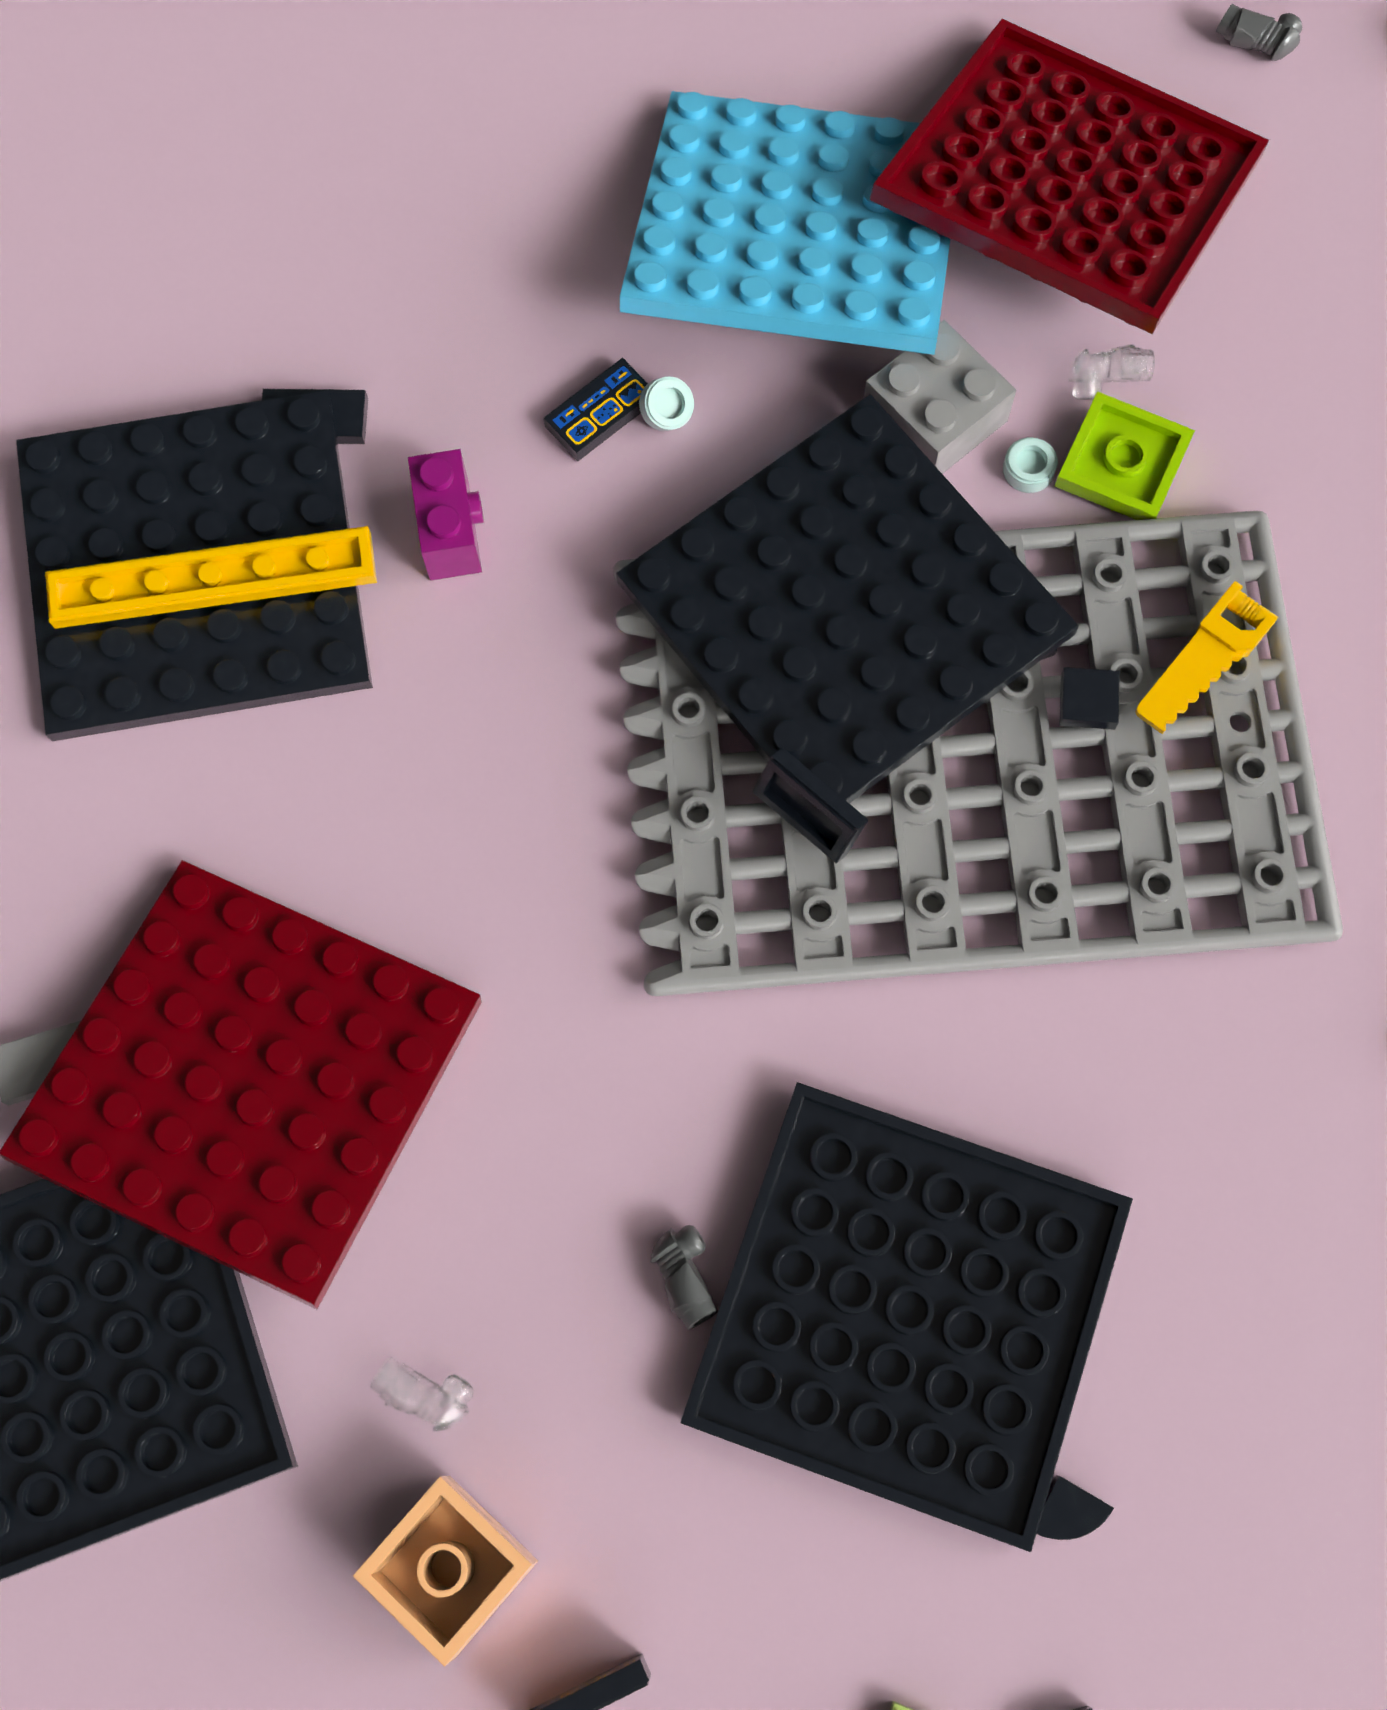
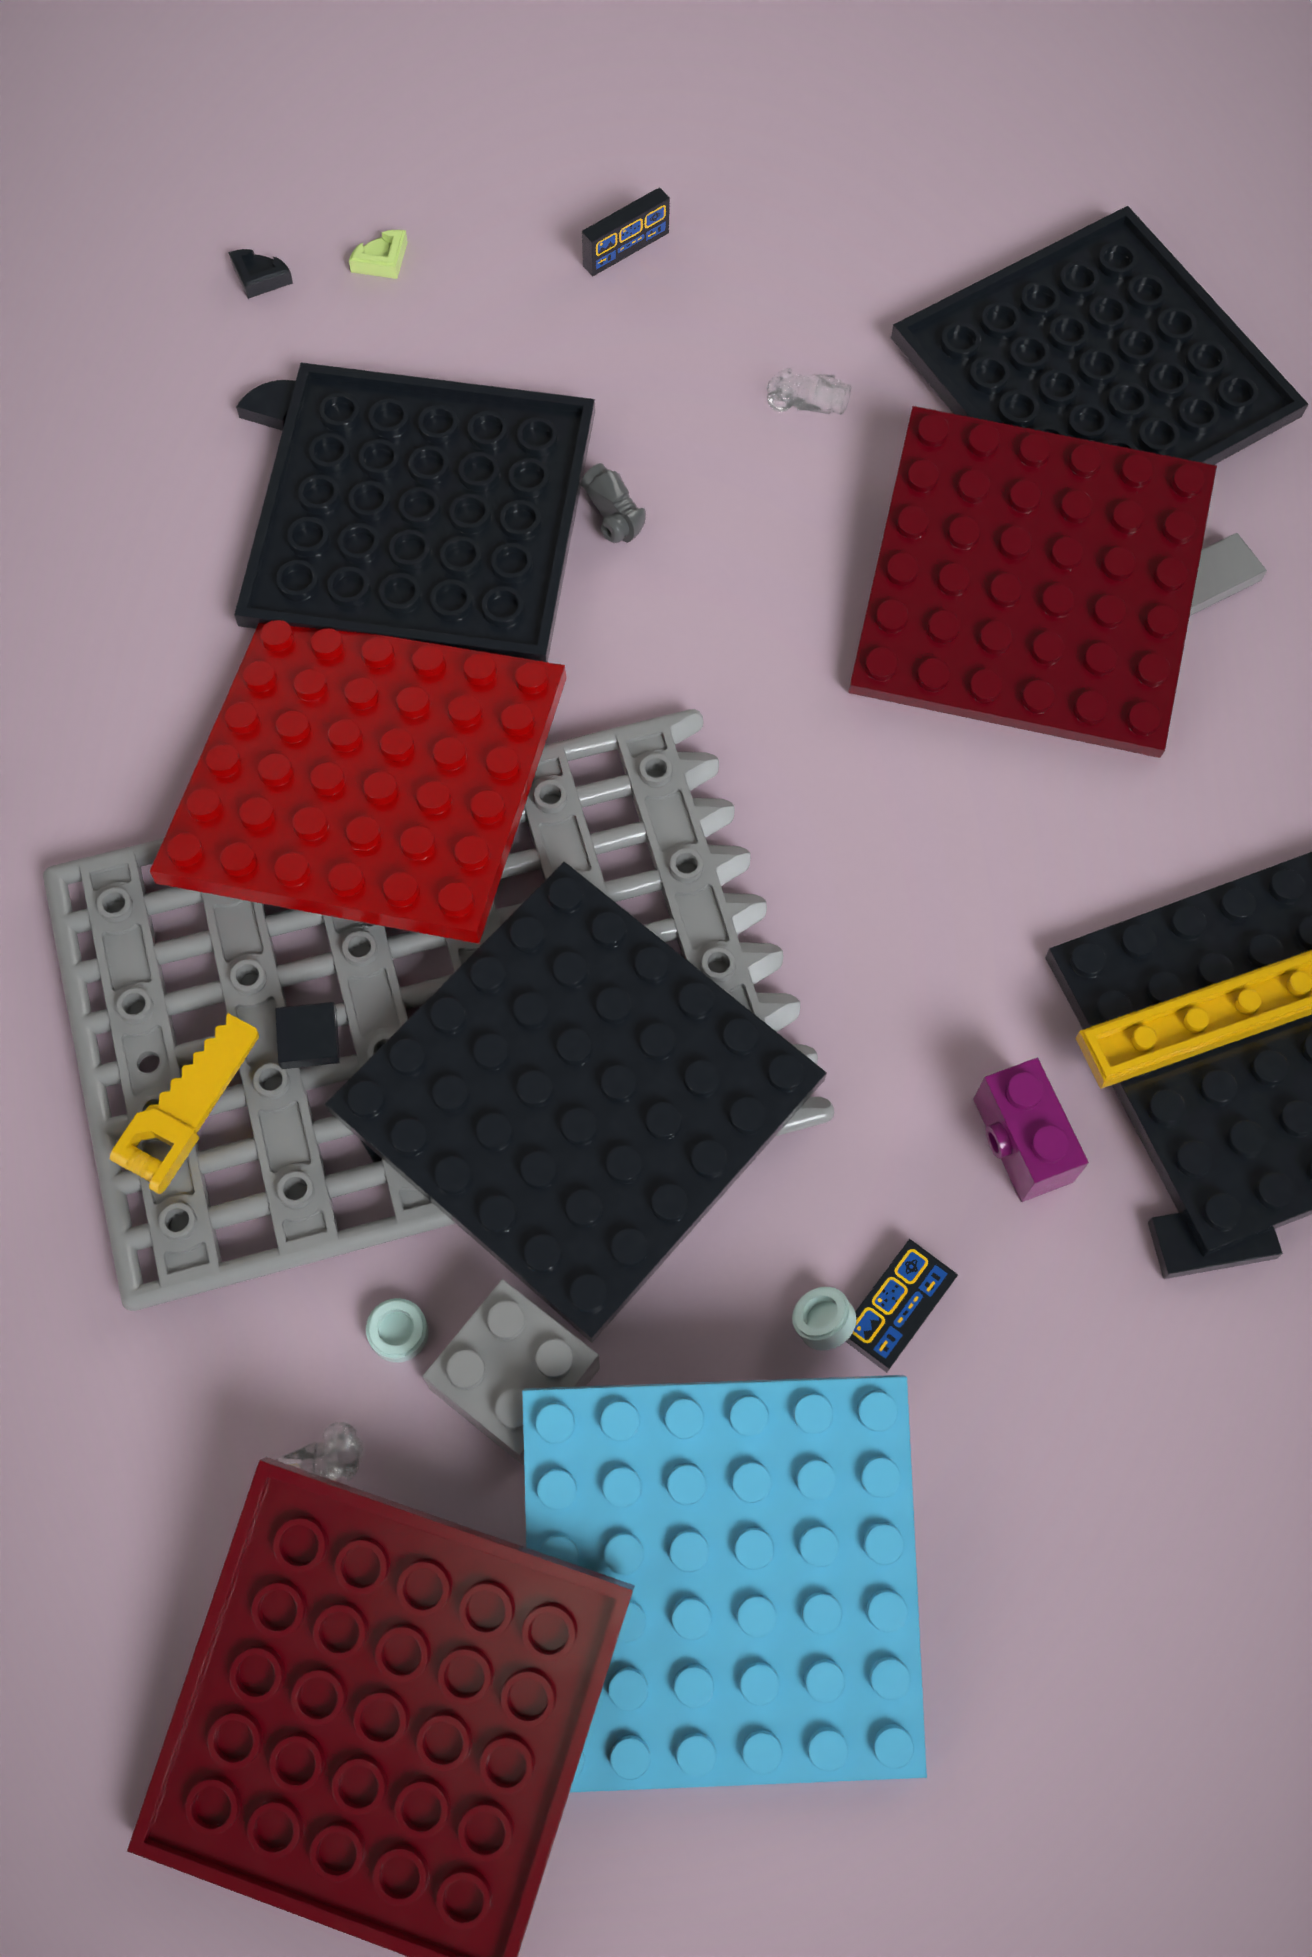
camera: 165 degrees right, 5 degrees down
(445, 1569) = (752, 276): light nougat brick -> none
(809, 805) = (577, 866): black tile -> none
(1008, 969) = (364, 779): none -> red plate
(1124, 458) = (289, 1349): lime plate -> none

